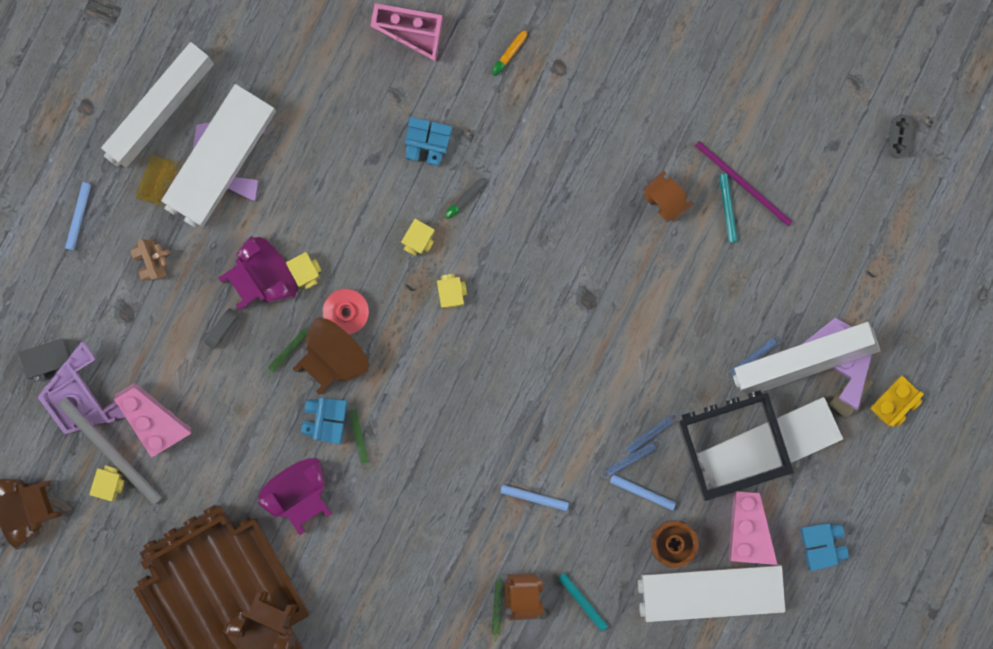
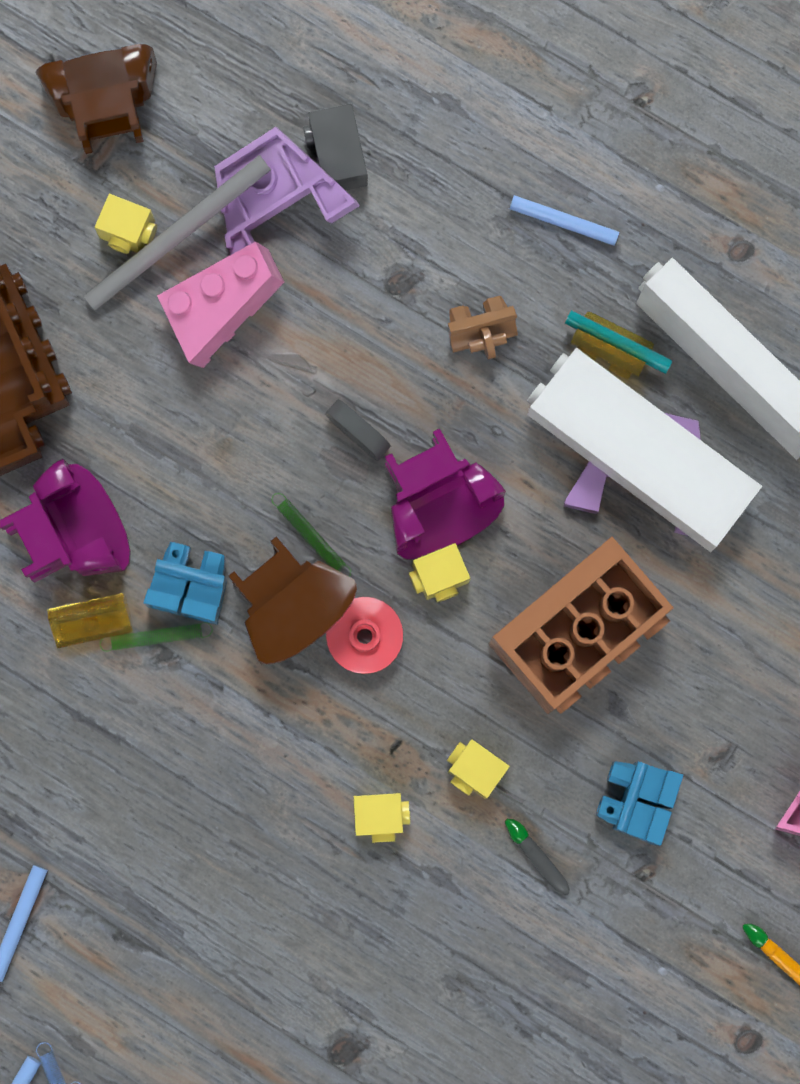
camera: 95 degrees right, 5 degrees down
(152, 177) = (631, 347): none -> teal bar
(314, 188) = (583, 601): none -> nougat brick
(352, 476) = (90, 620): none -> clear yellow brick

